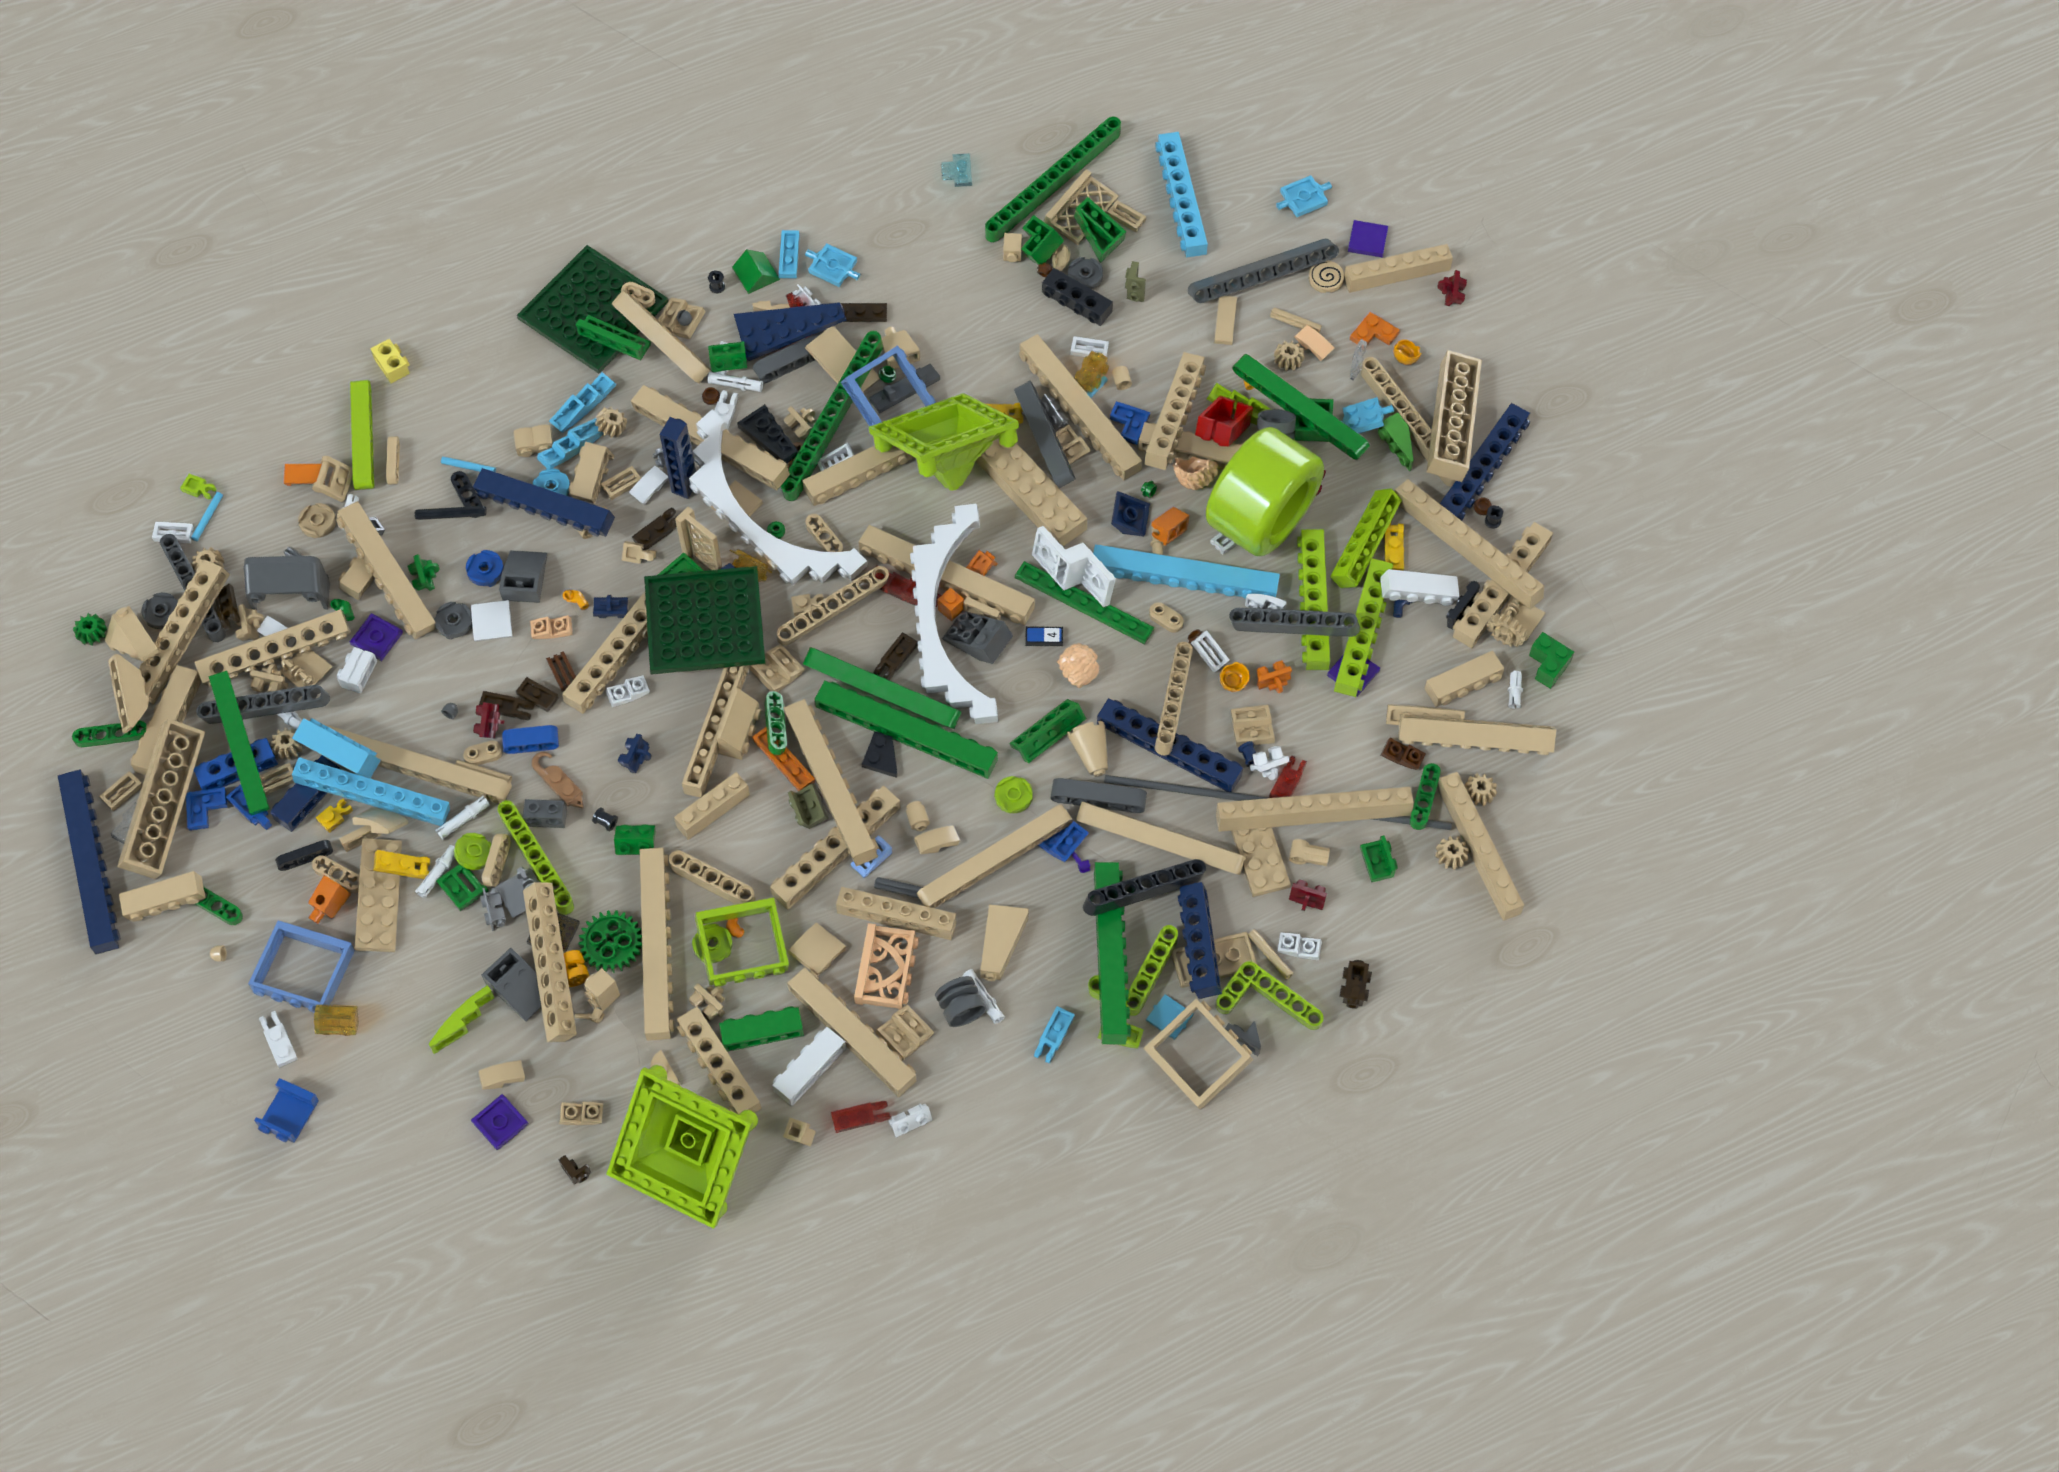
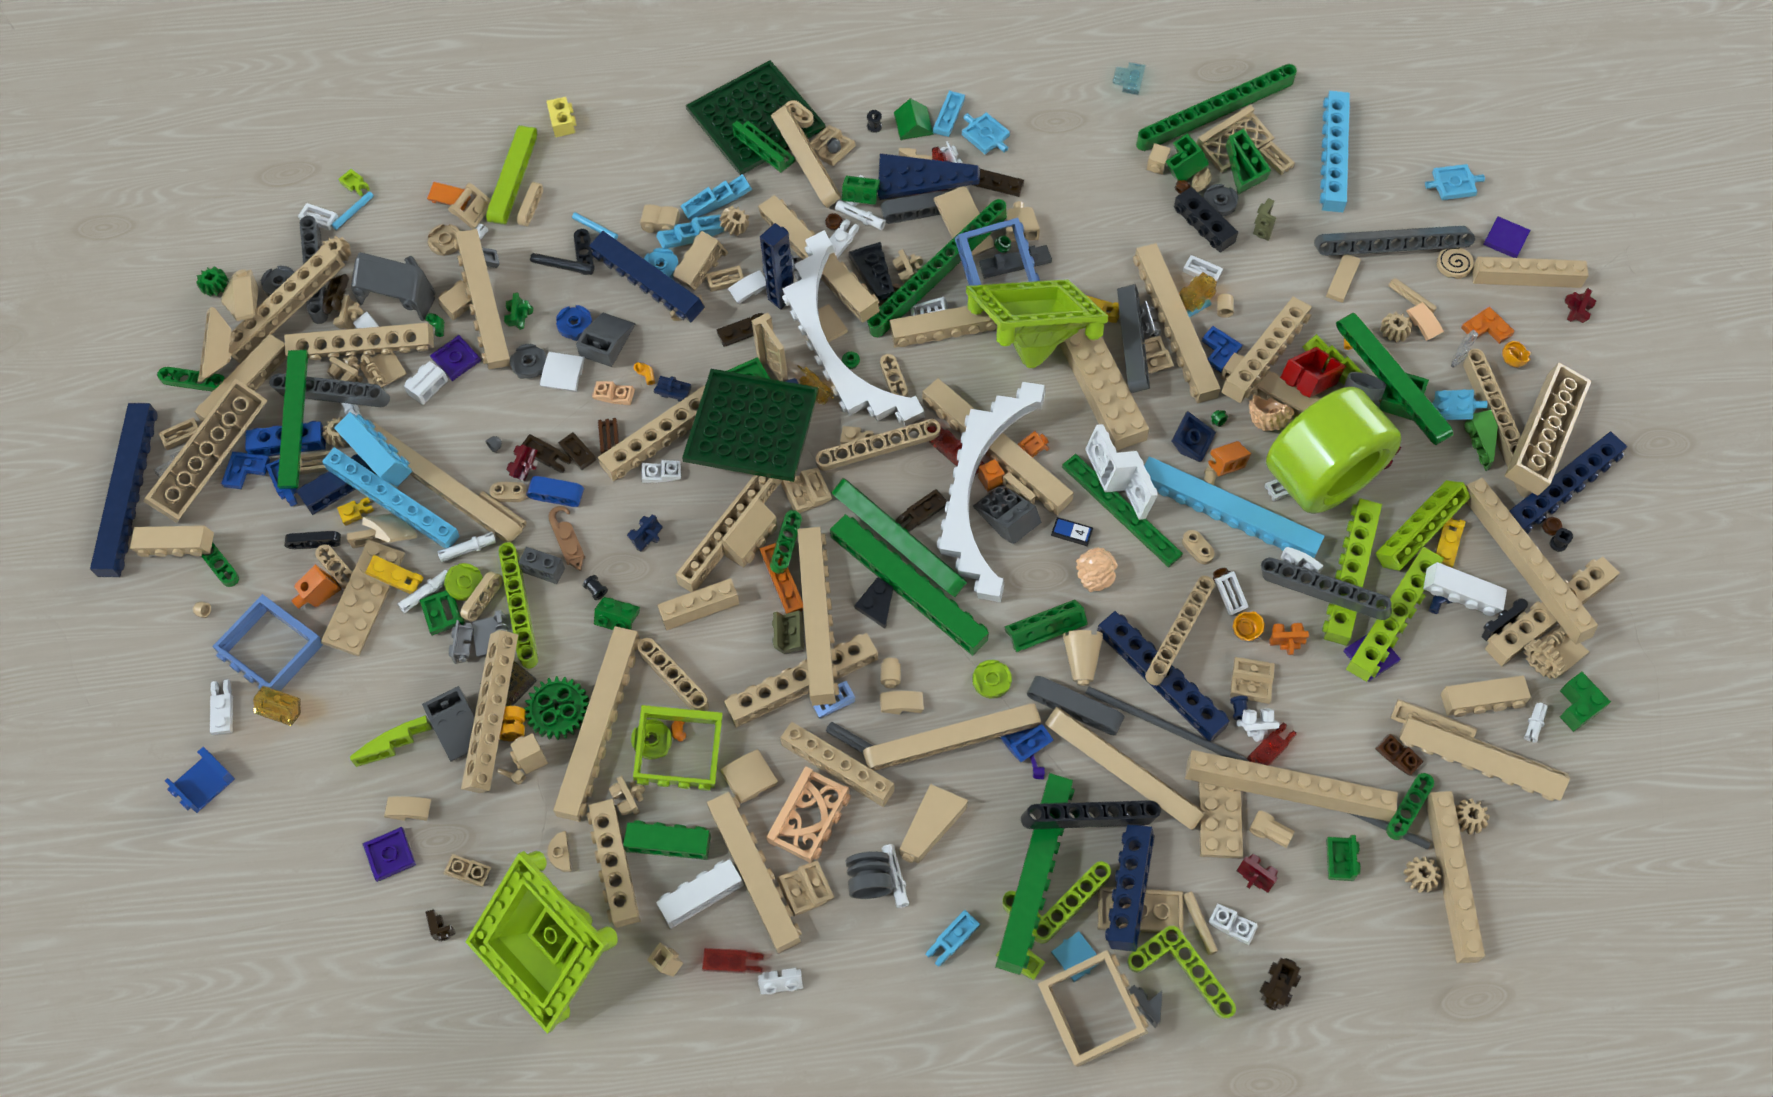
camera: 20 degrees right, 0 degrees up
(634, 553) = (713, 345): tan plate -> none

